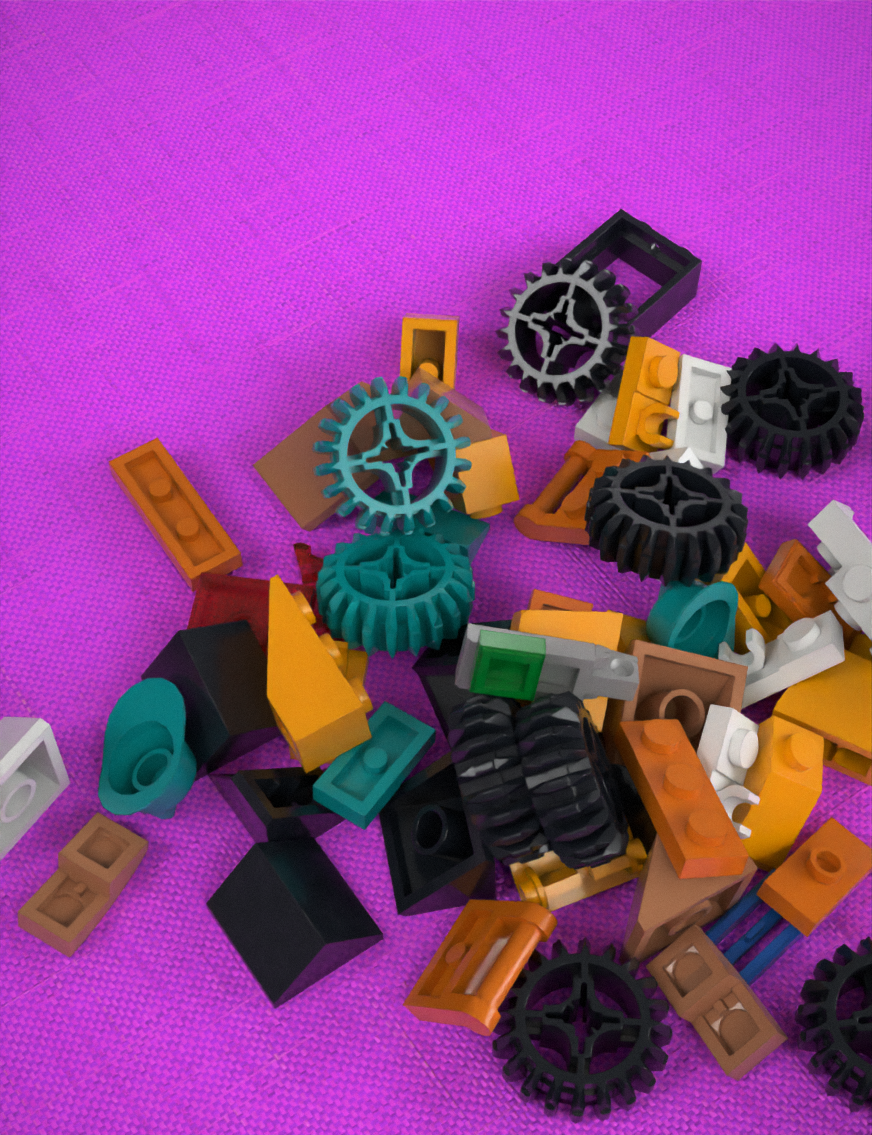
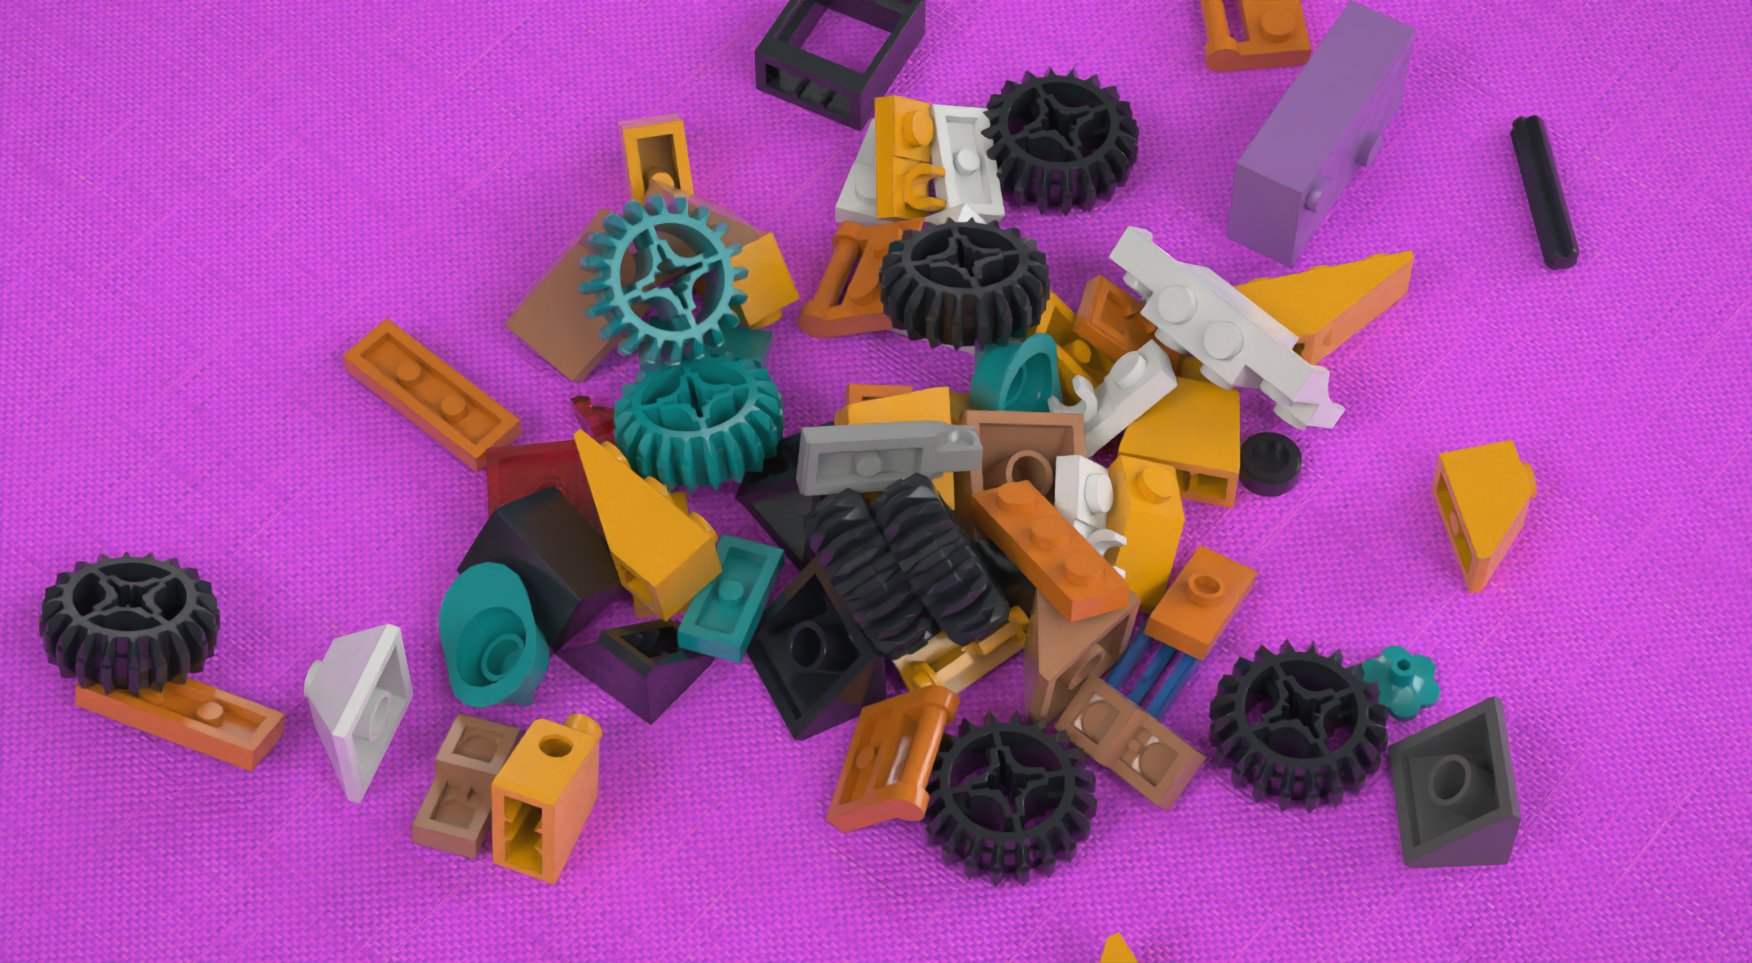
camera: 15 degrees left, 0 degrees up
(145, 914) = (549, 770): none -> light orange torso
(291, 916) = (687, 767): black slope -> none
(507, 665) = (851, 459): green tile -> none
(582, 286) = (803, 83): black gear -> none

